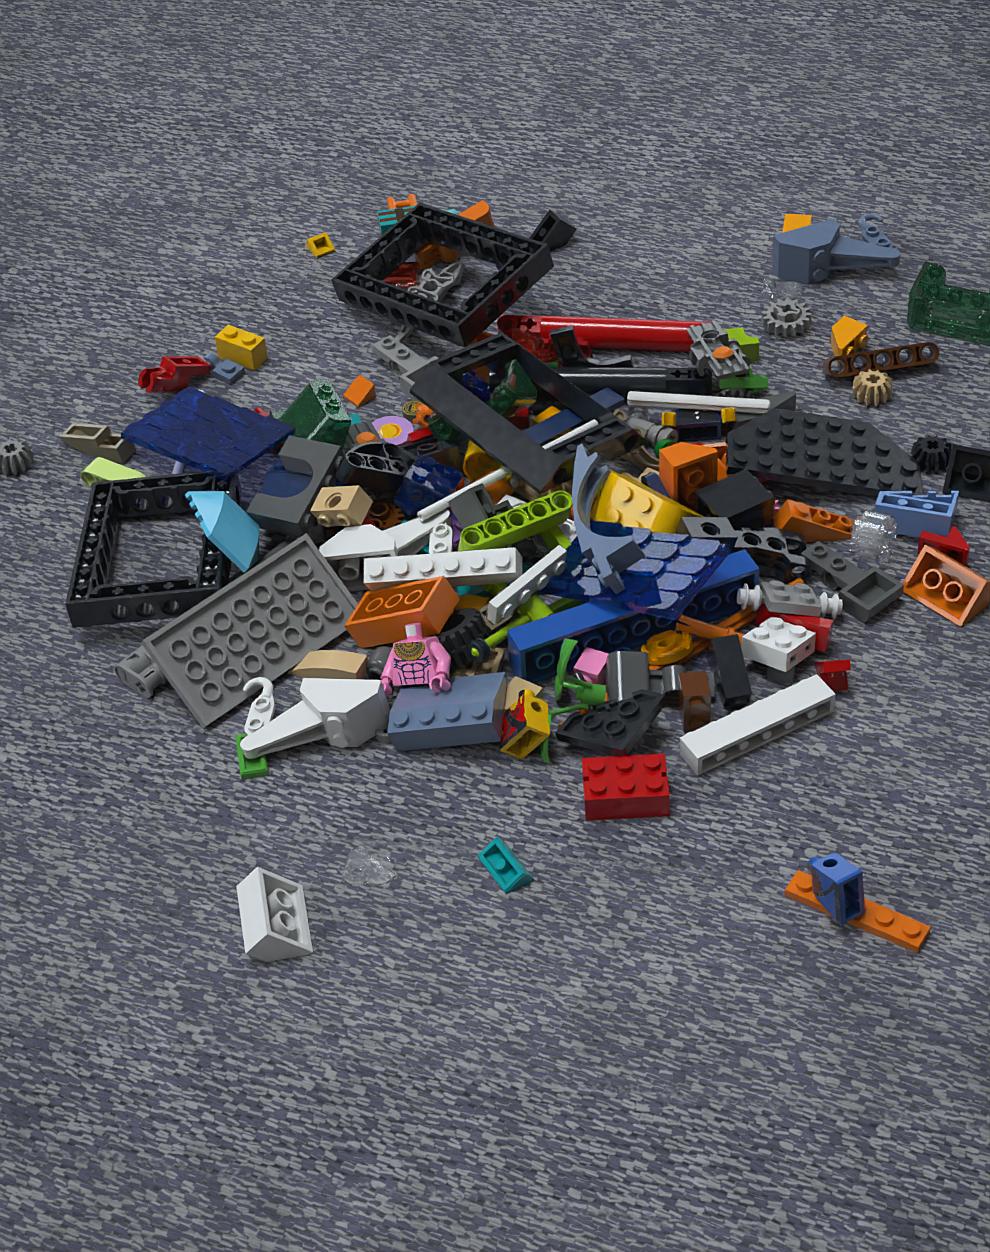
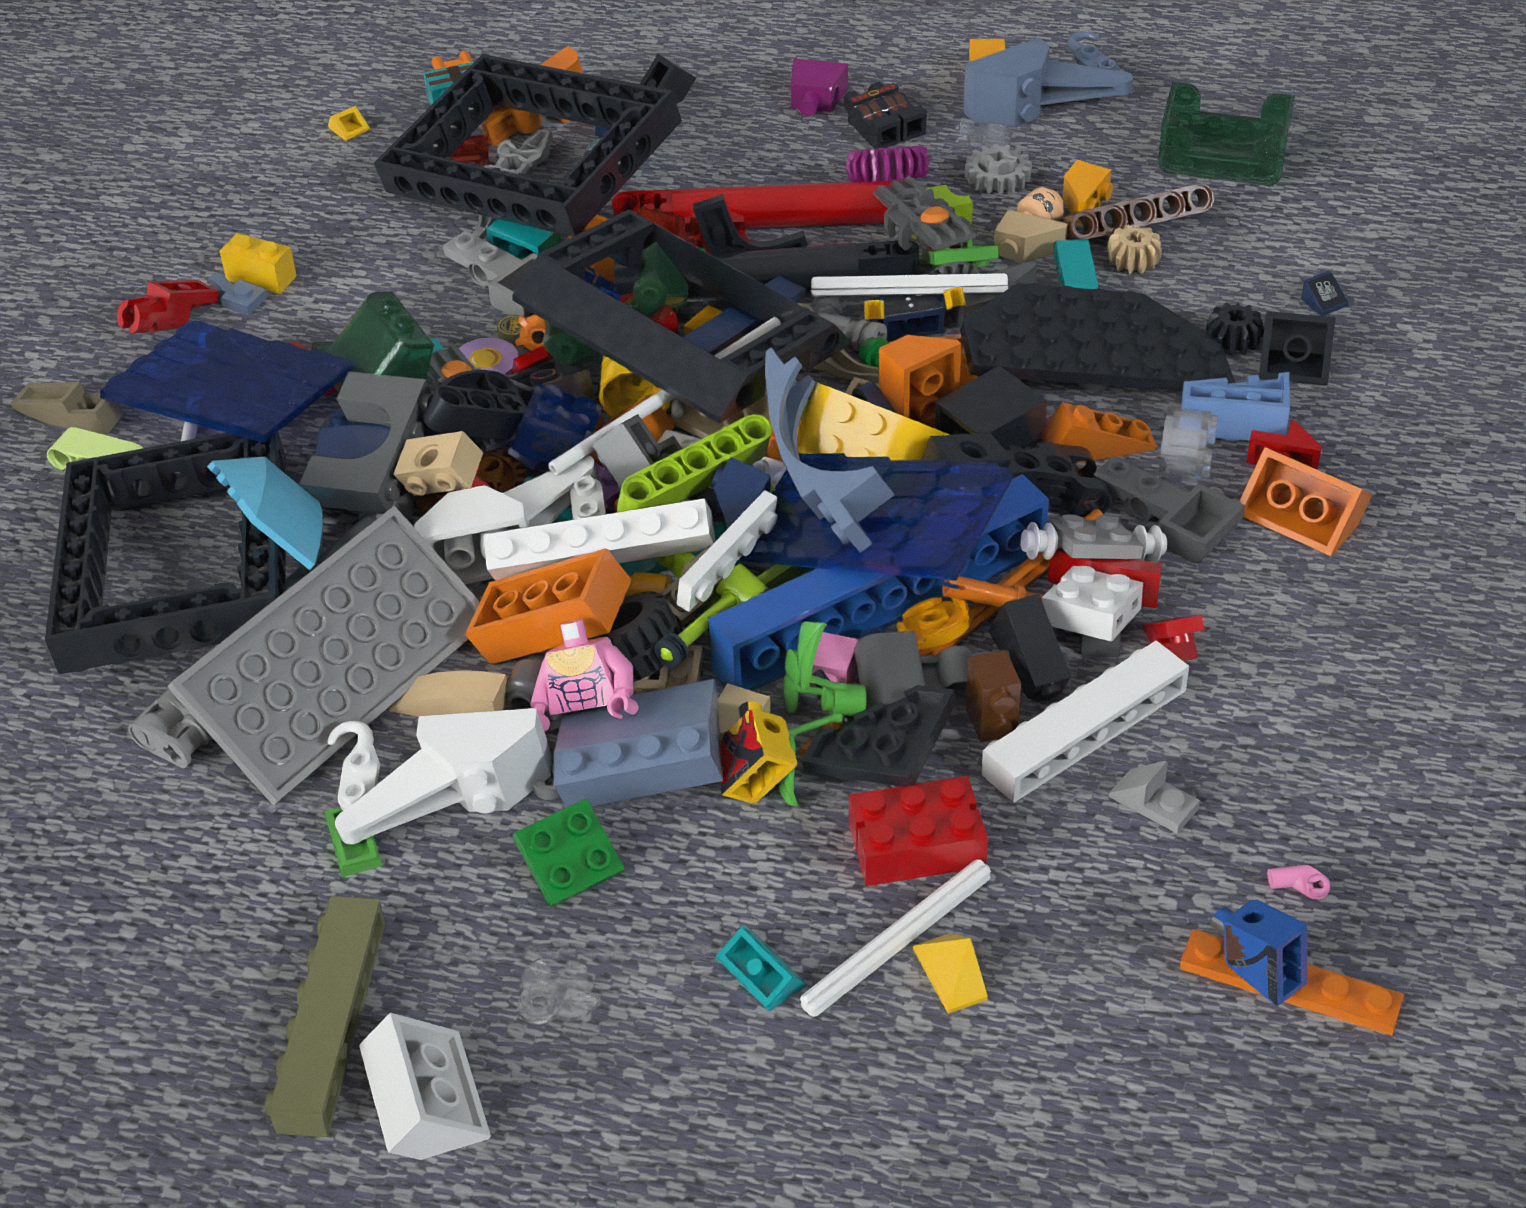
camera: 10 degrees left, 0 degrees up
(219, 866) = (326, 1017): none -> olive brick
(360, 391) = (435, 309): orange slope -> none
(390, 778) = (568, 852): none -> green plate
(428, 345) = (520, 239): none -> teal brick
(542, 540) = (737, 489): none -> dark blue slope
(598, 855) = (894, 938): none -> white axle
(631, 881) = (952, 970): none -> yellow slope
(666, 241) = (817, 85): none -> magenta torso
(703, 308) = (887, 163): none -> magenta gear
(712, 267) = (886, 113): none -> black hips
(791, 780) = (1148, 794): none -> light grey slope
(796, 372) = (1027, 236): none -> tan slope
(809, 352) = (1042, 203): none -> light nougat head
(825, 396) = (1075, 264): none -> teal beam
(881, 844) = (1302, 878): none -> bright pink arm

